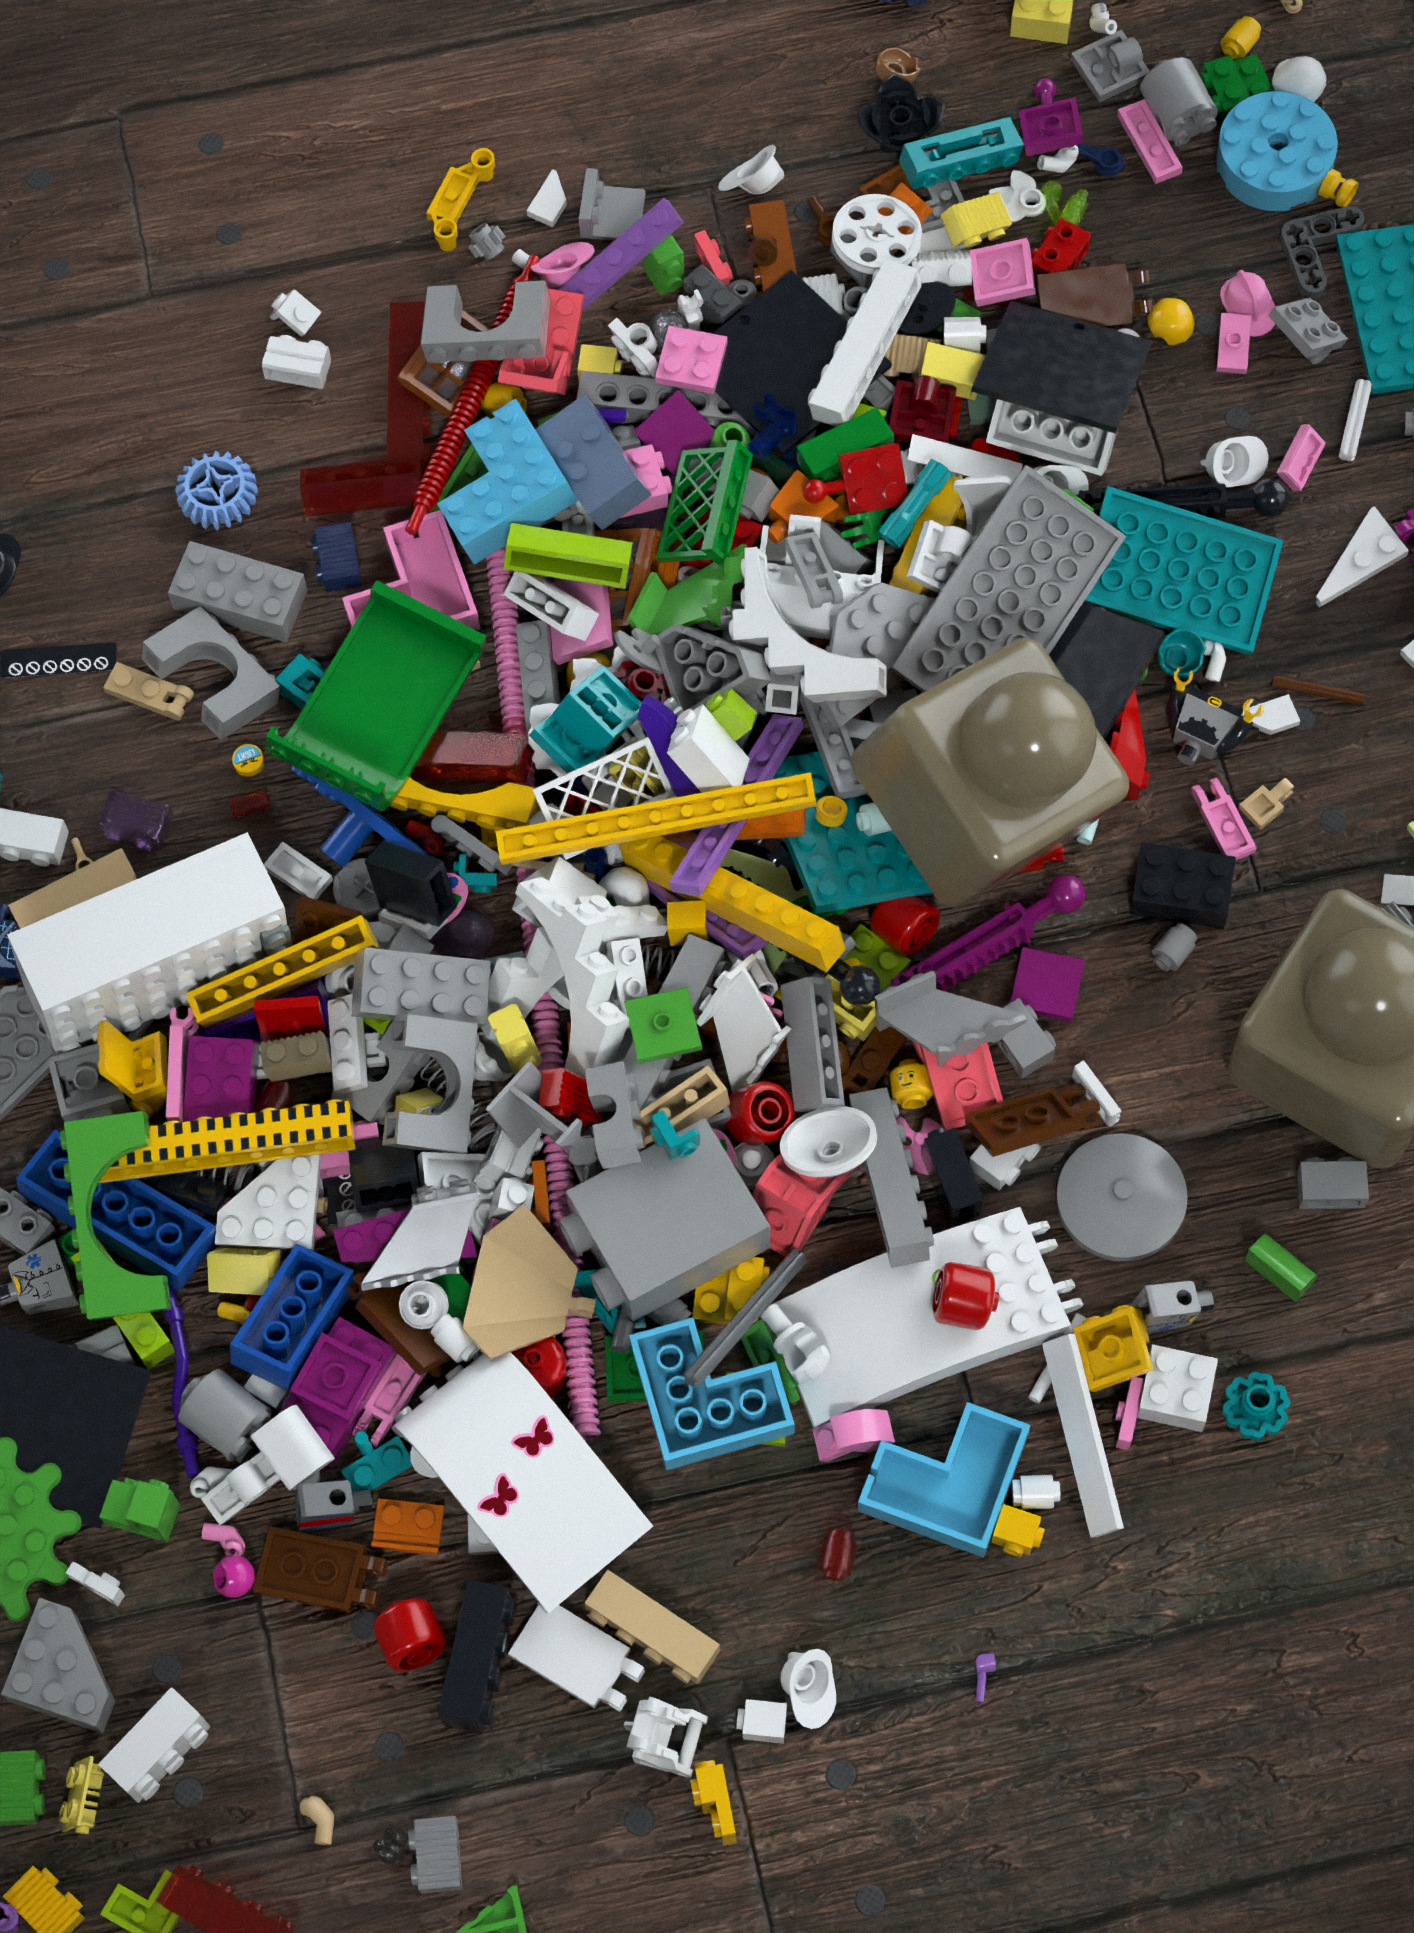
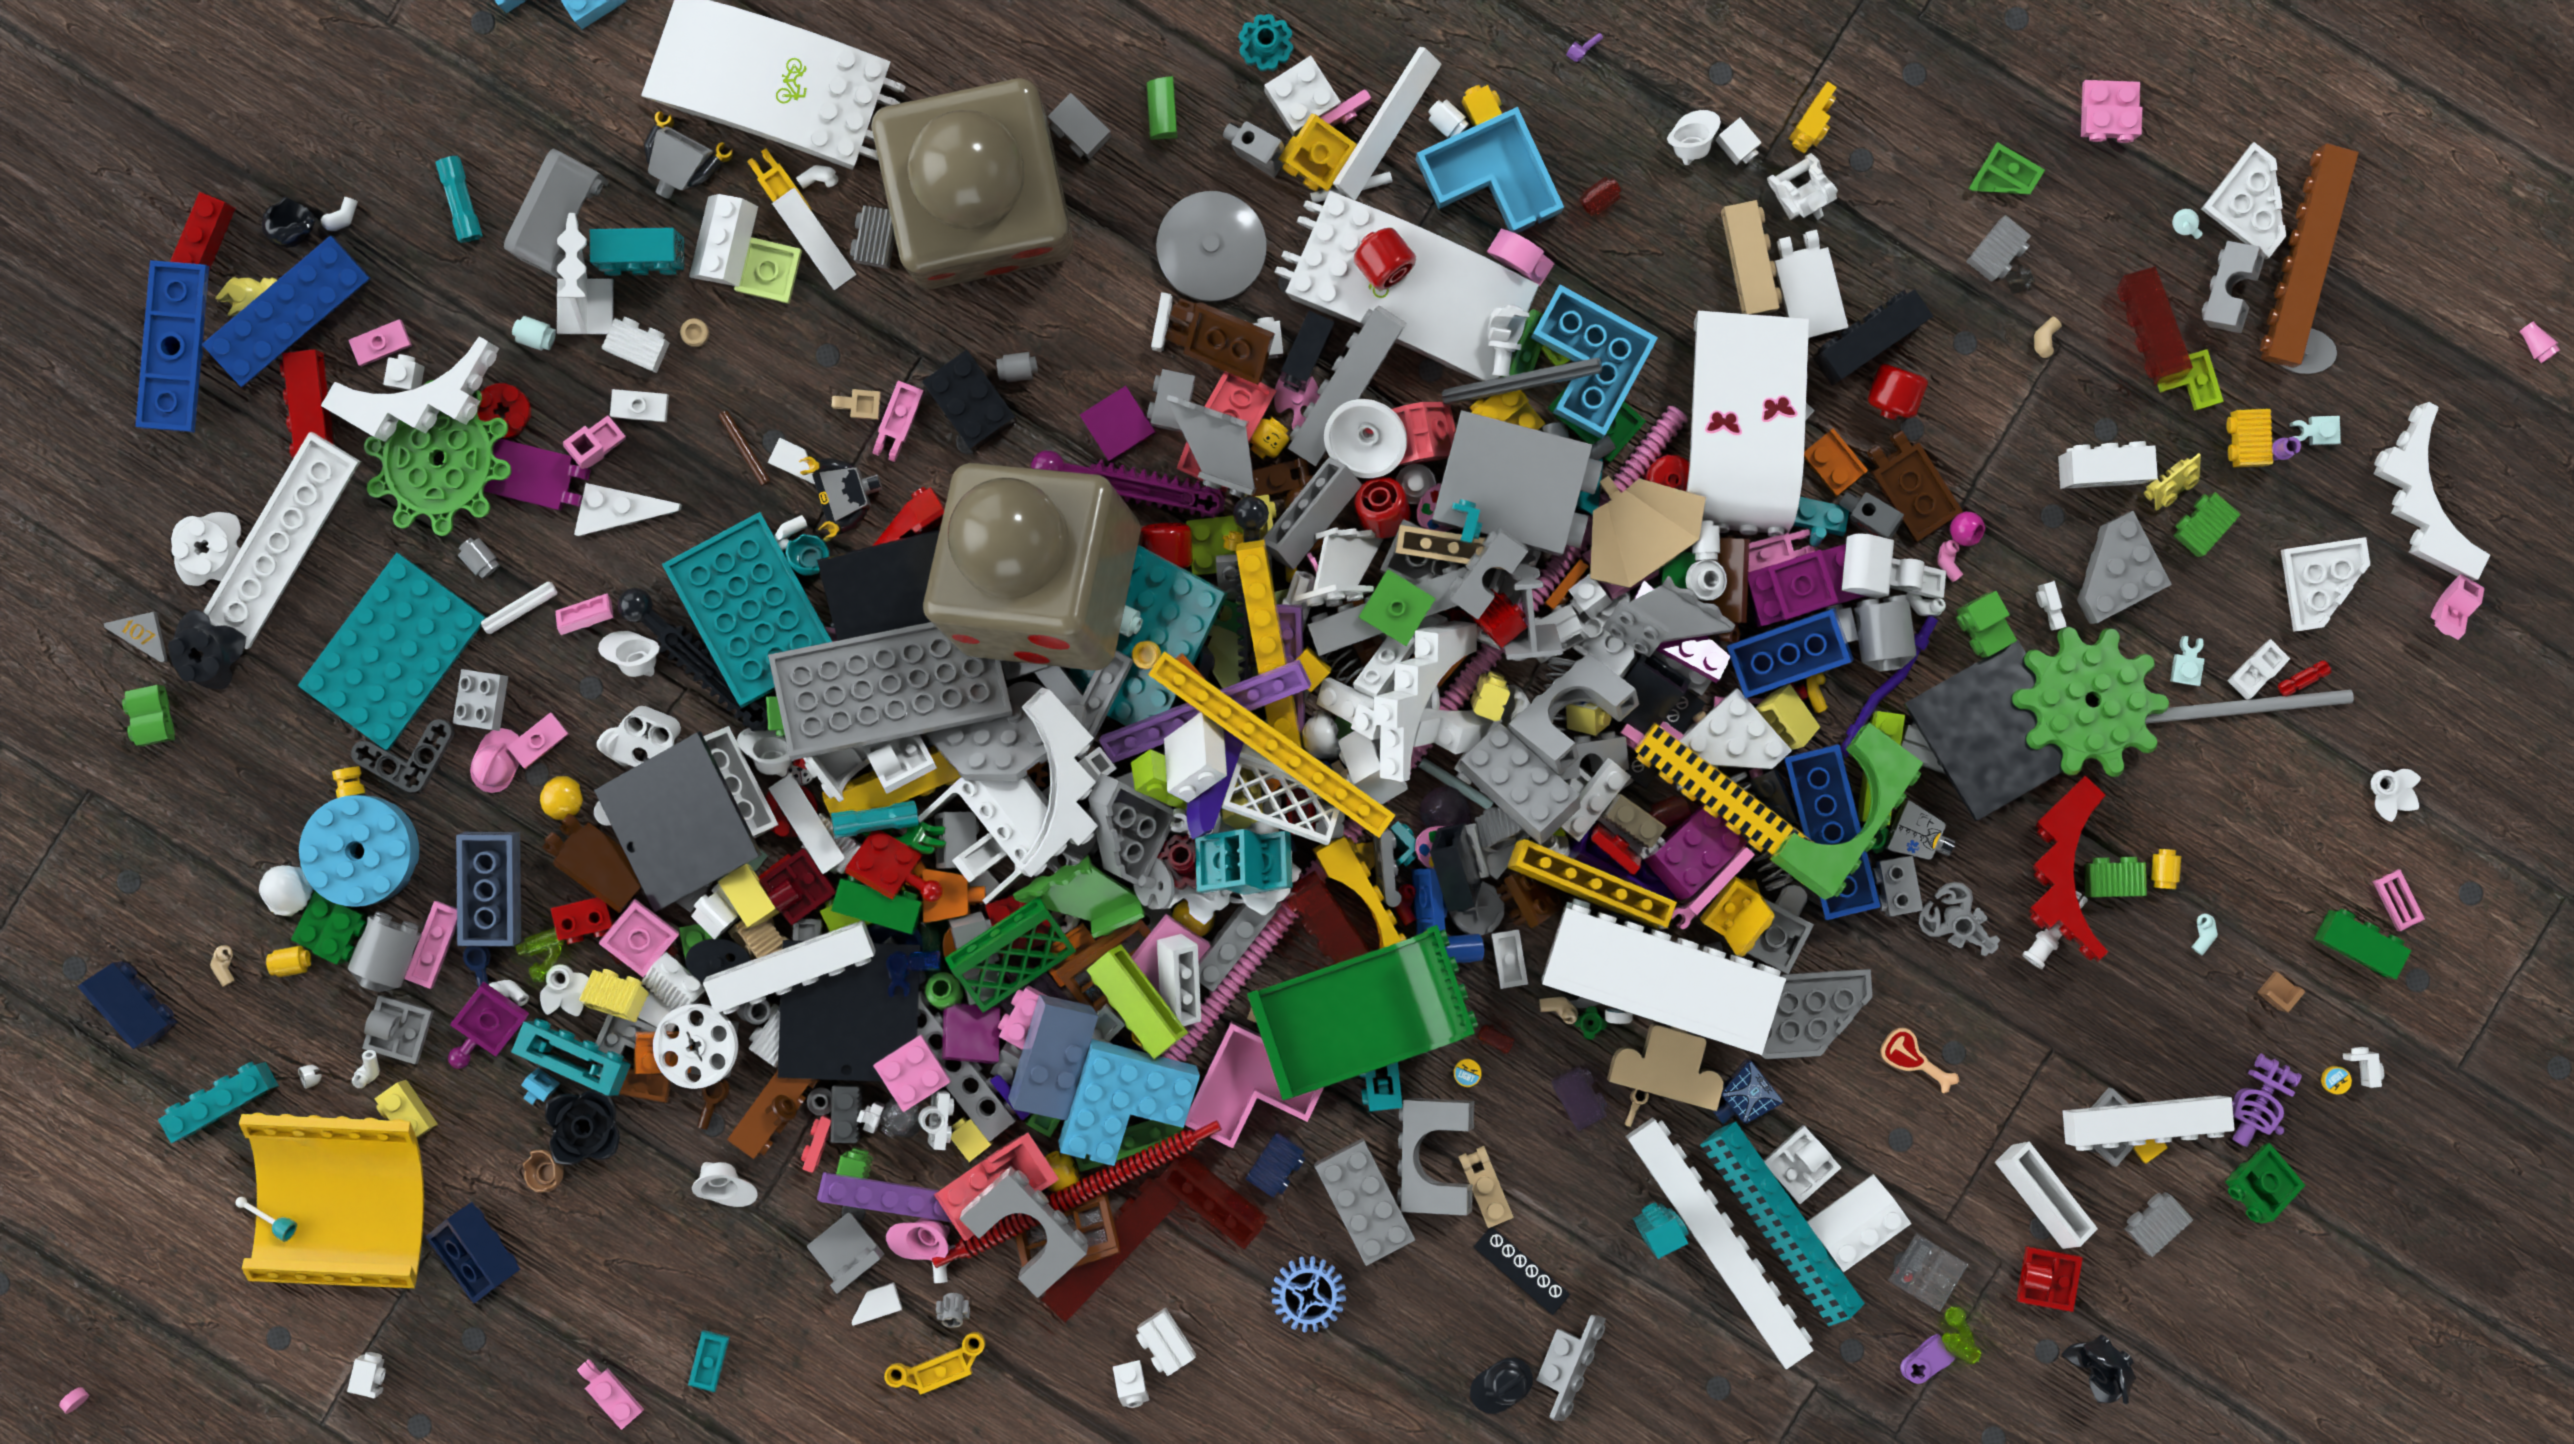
camera: 140 degrees left, 20 degrees up
(635, 56) = (709, 1361): none -> teal plate
(813, 569) = (997, 824): light grey plate -> none
(963, 115) = (539, 1086): none -> medium azure tile
(1152, 209) = (488, 889): none -> sand blue brick
(1162, 419) = (620, 741): none -> white piece

